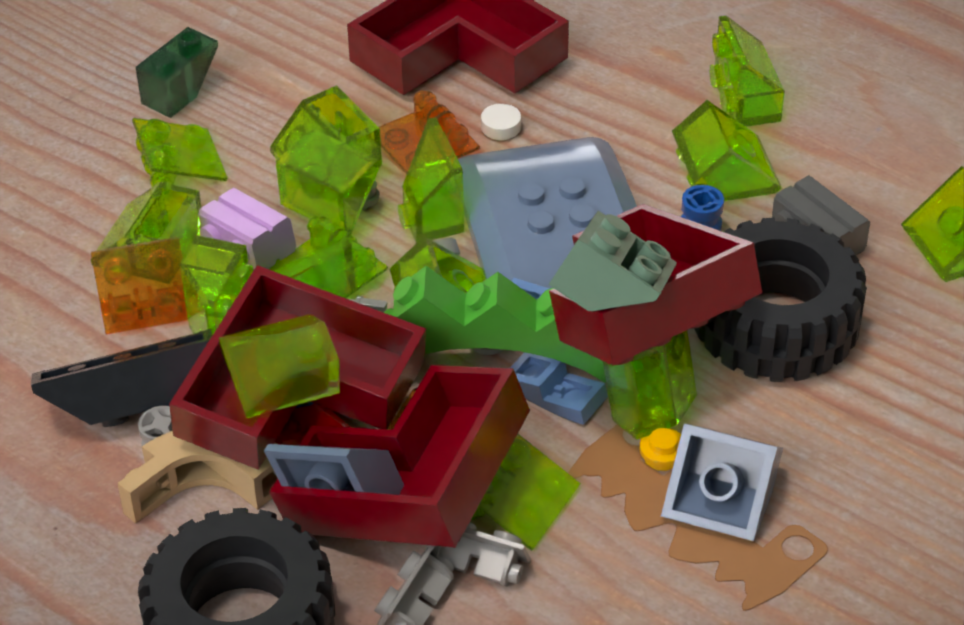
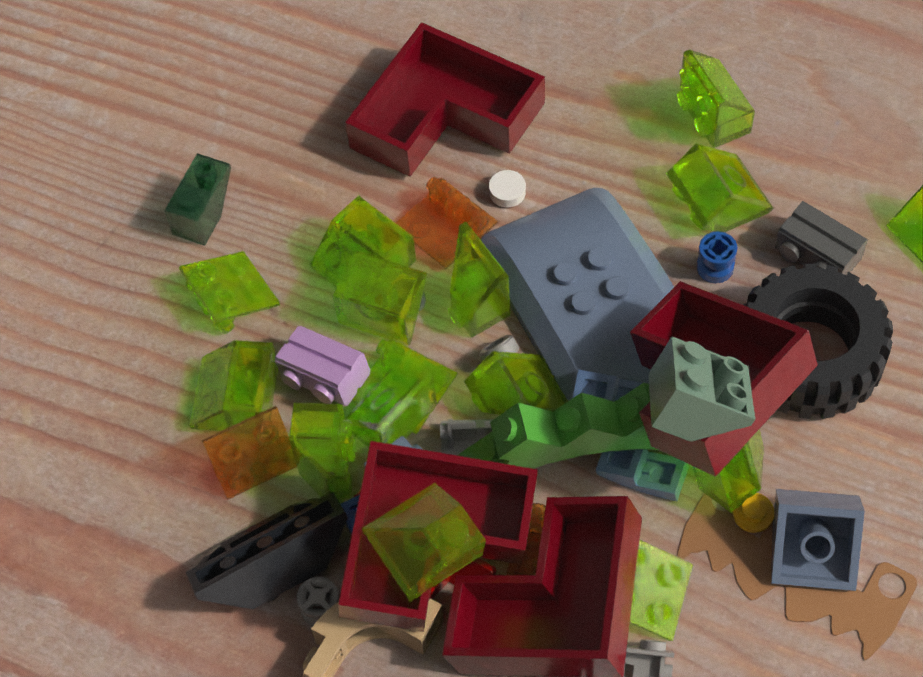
camera: 10 degrees left, 15 degrees up
(335, 468) = (501, 624): sand blue slope -> none

